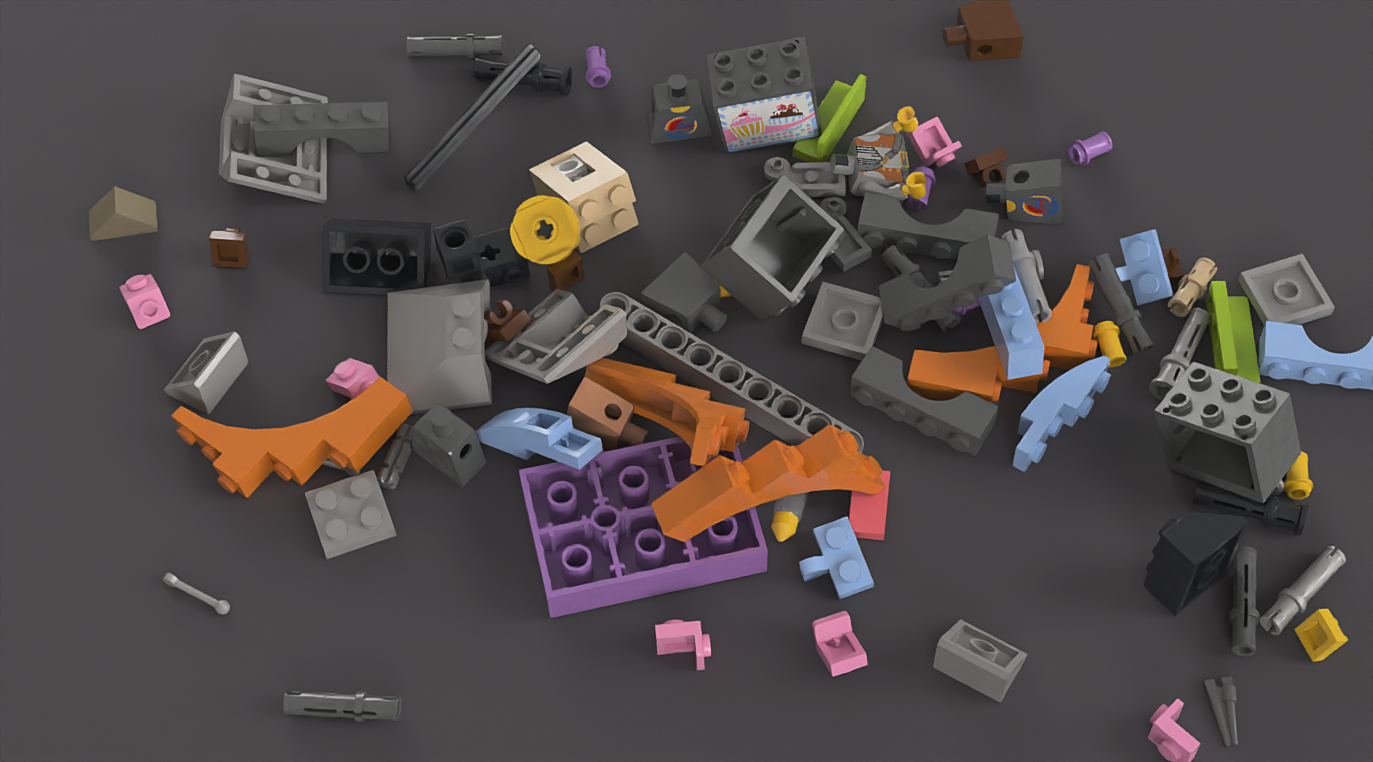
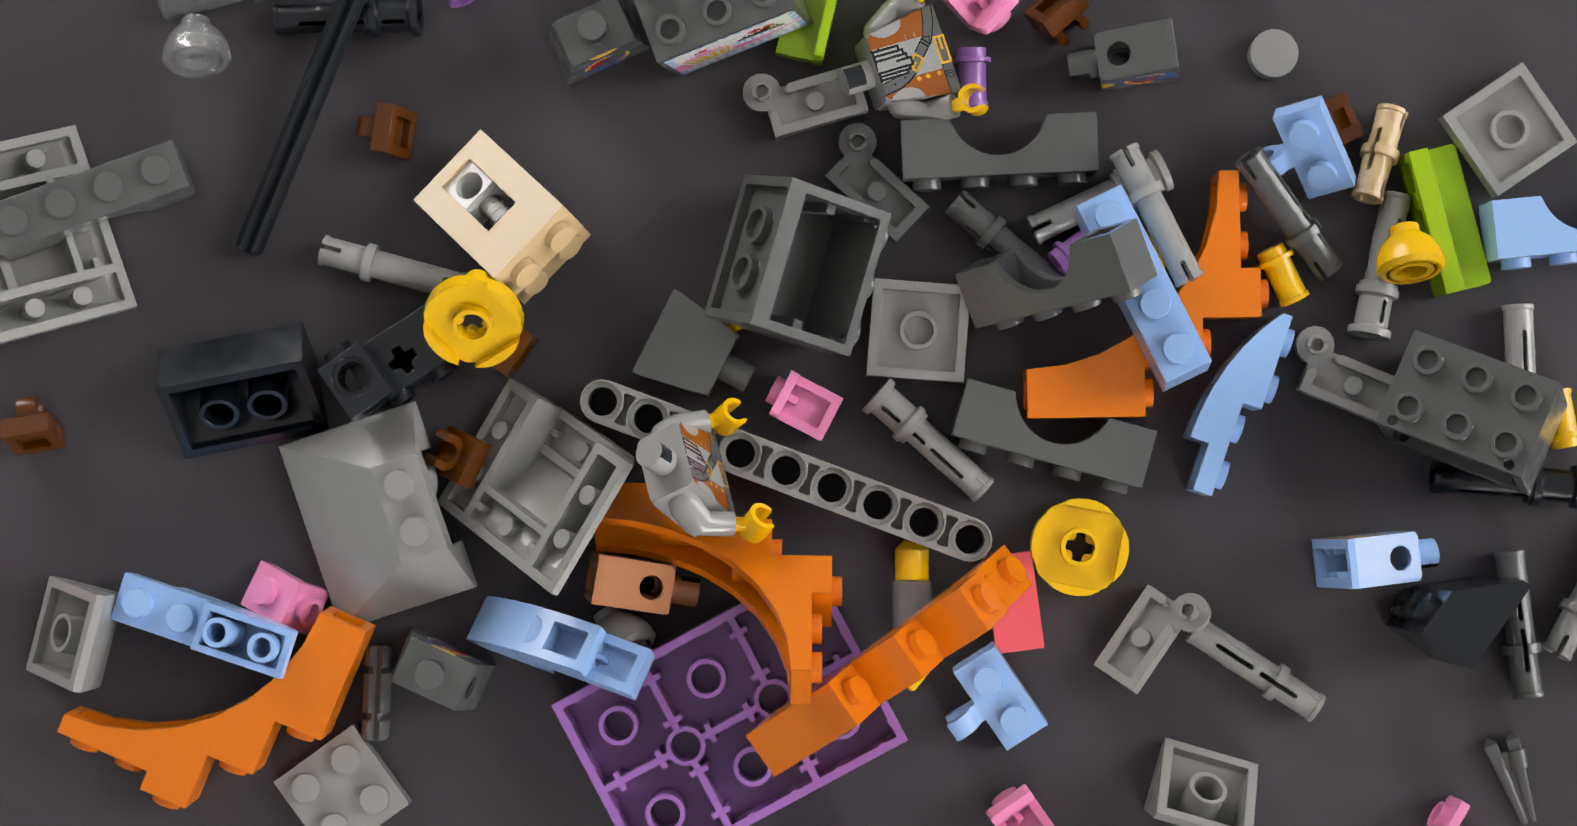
camera: 15 degrees left, 30 degrees up
(297, 380) = (205, 624): none -> light blue slope
(419, 71) = (196, 49): none -> clear brick
(489, 206) = (380, 265): none -> light grey pin
(527, 136) = (390, 131): none -> reddish brown tile
(662, 339) = (689, 478): none -> light grey torso
(751, 344) = (803, 404): none -> bright pink bracket
(822, 377) = (910, 425): none -> light grey pin
(920, 495) = (1101, 530): none -> yellow plate
(962, 542) = (1149, 633): none -> light grey hinge
(1049, 594) = (1304, 699): none -> light grey pin
(1129, 219) = (1272, 54): none -> light grey tile
(1133, 522) = (1372, 559): none -> light blue torso
(1134, 413) = (1337, 377): none -> light grey hinge
(1200, 341) = (1409, 255): none -> yellow brick

